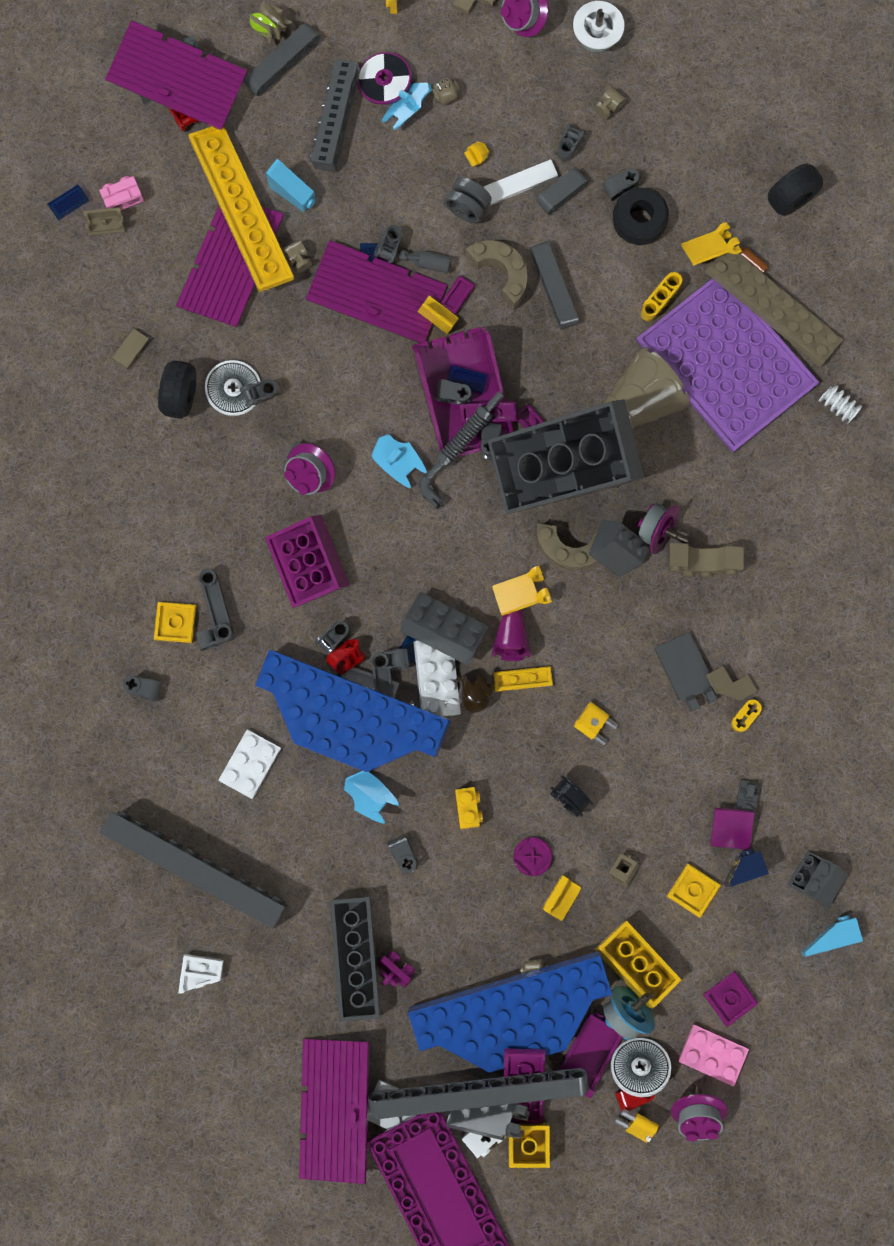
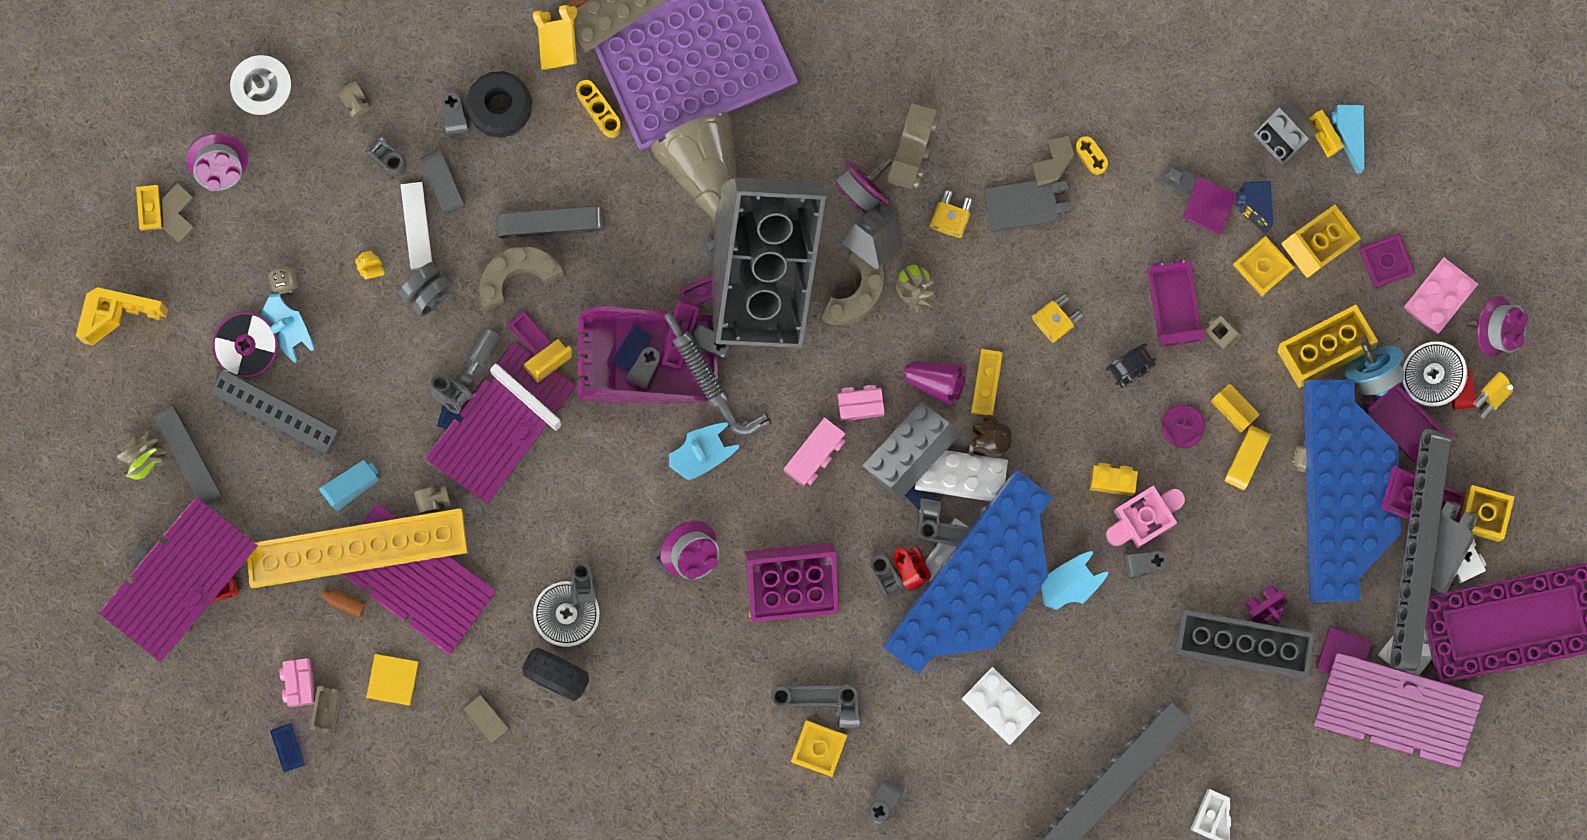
camera: 75 degrees left, 0 degrees up
(143, 267) = (392, 679): none -> yellow tile
(195, 212) = (344, 602): none -> dark orange cylinder
(379, 1047) = (1344, 643): none -> magenta tile
(401, 304) = (526, 397): none -> white tile
(421, 551) = (815, 453): none -> bright pink brick
(442, 843) = (1145, 517): none -> bright pink brick
(473, 577) = (860, 403): none -> bright pink brick
(520, 920) = (1247, 457): none -> yellow beam
(521, 592) = (892, 358): yellow flag -> none
(586, 595) = (915, 287): none -> dark tan hair
(637, 821) = (1175, 303): none -> magenta panel
(654, 610) = (949, 218): none -> yellow piece
(730, 935) = (1320, 241): none -> yellow slope
(825, 916) = (1326, 136): none -> yellow plate

